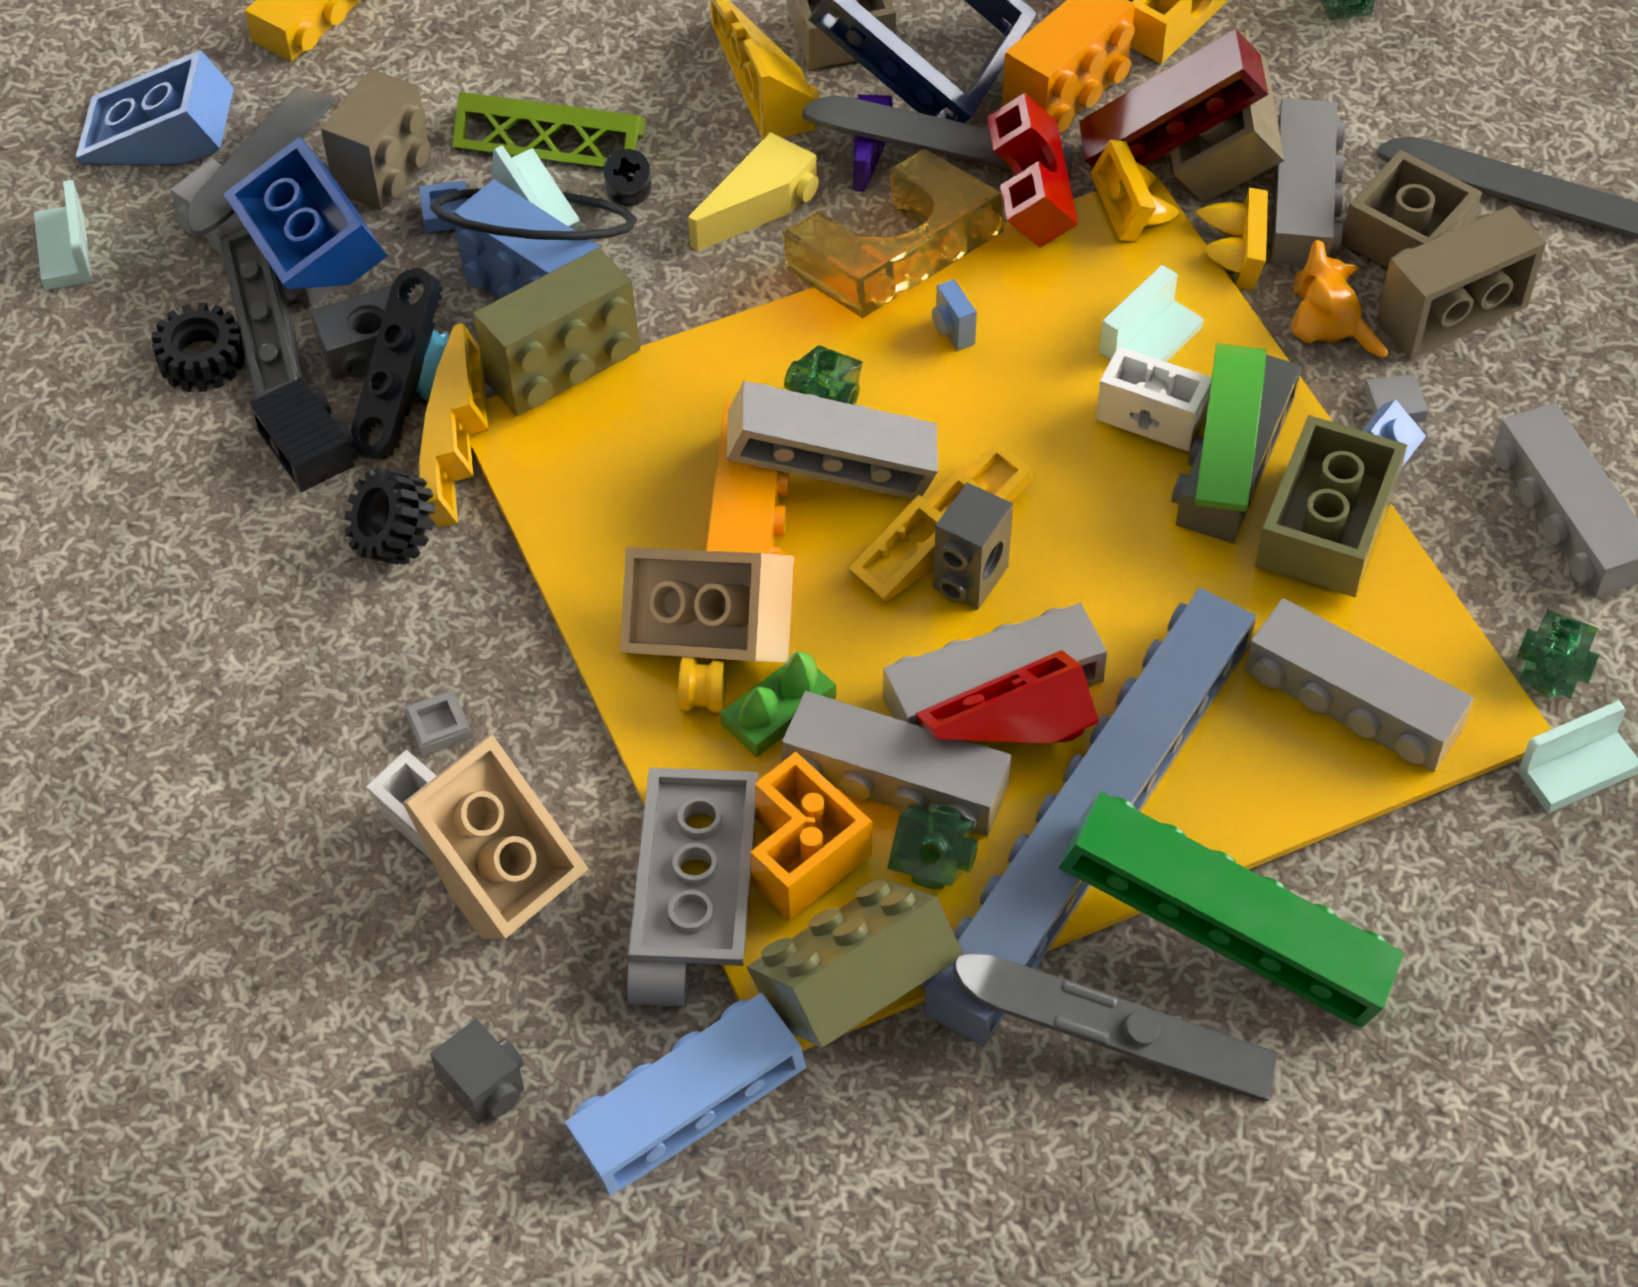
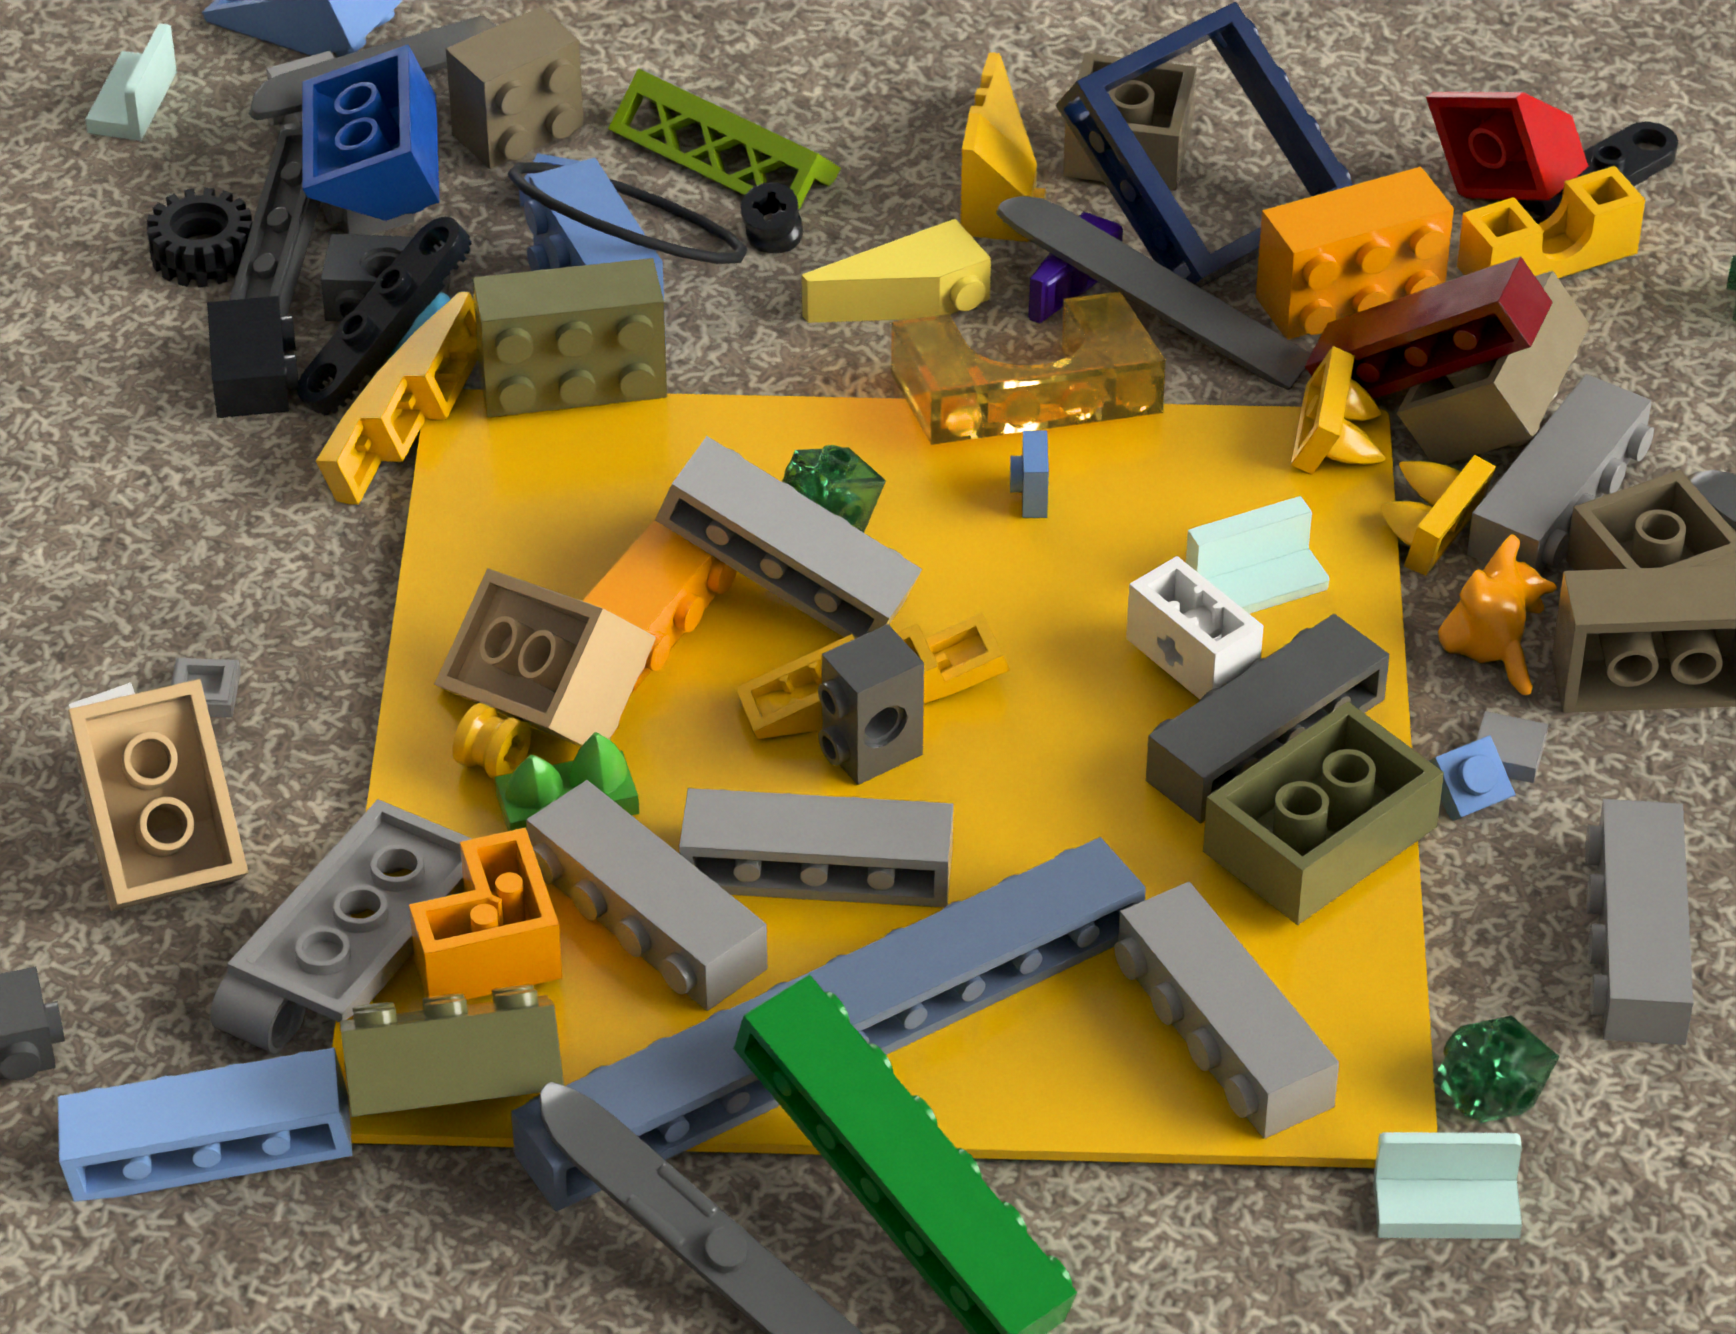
camera: 25 degrees right, 10 degrees down
(389, 516) = (277, 462): black tyre -> none
(532, 181) = (657, 194): light aqua panel -> none
(933, 845) = (623, 984): clear green brick -> none
(1028, 705) = (816, 882): red slope -> none
(1040, 194) = (1216, 380): red arch -> none
(1231, 428) = (1244, 678): bright green slope -> none

